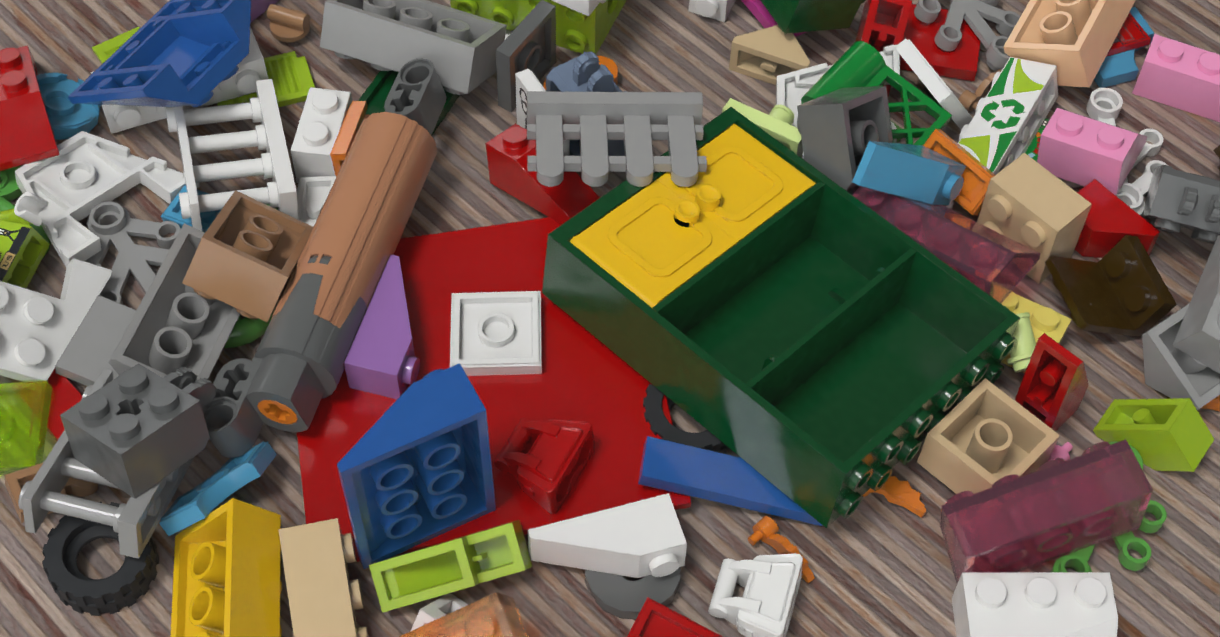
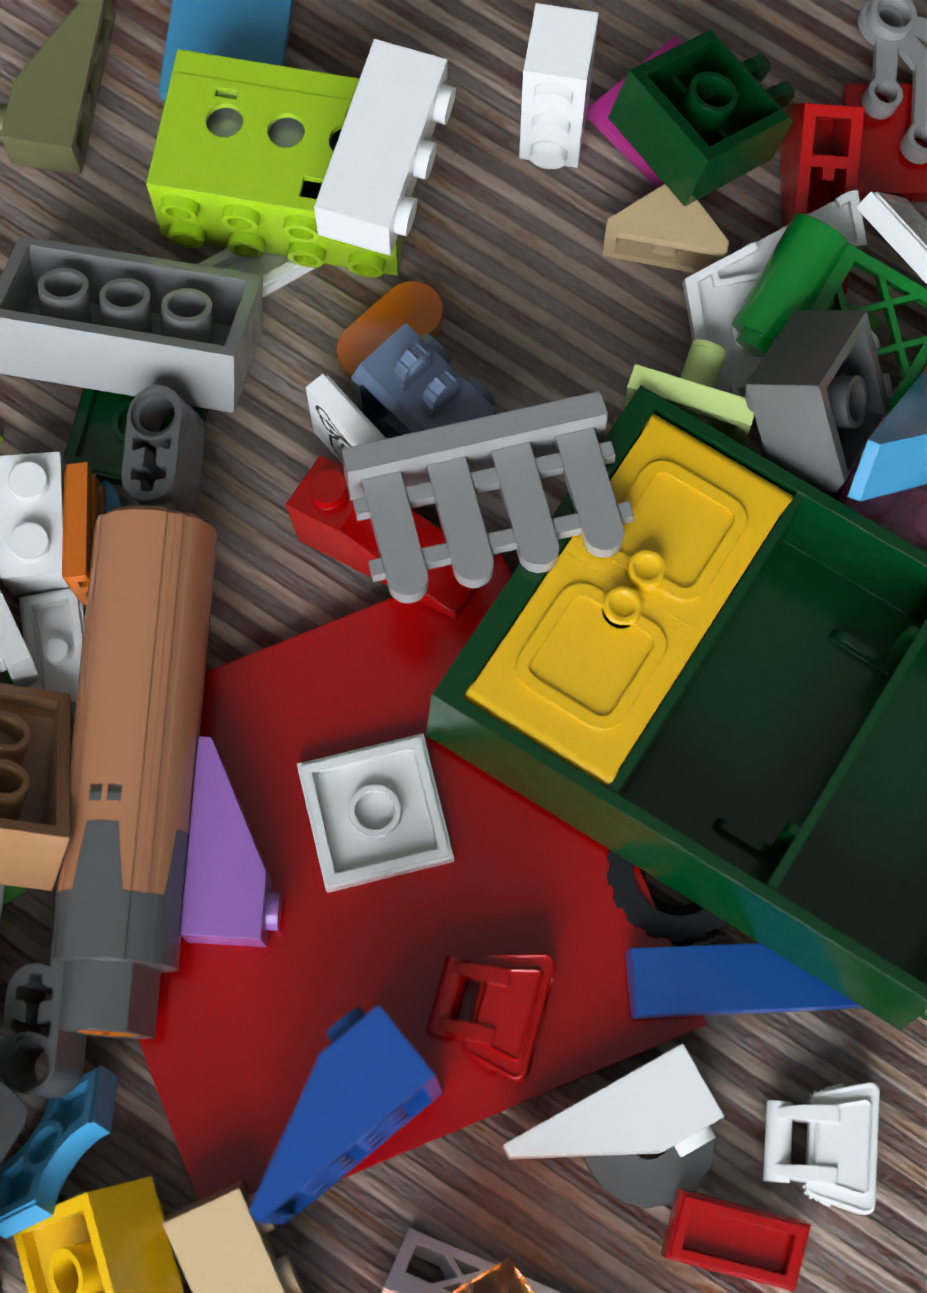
camera: 10 degrees left, 20 degrees up
(450, 566) = (407, 1197): lime slope -> none
(528, 46) = (304, 321): dark grey tile -> none
(766, 531) = (813, 1035): orange piece -> none

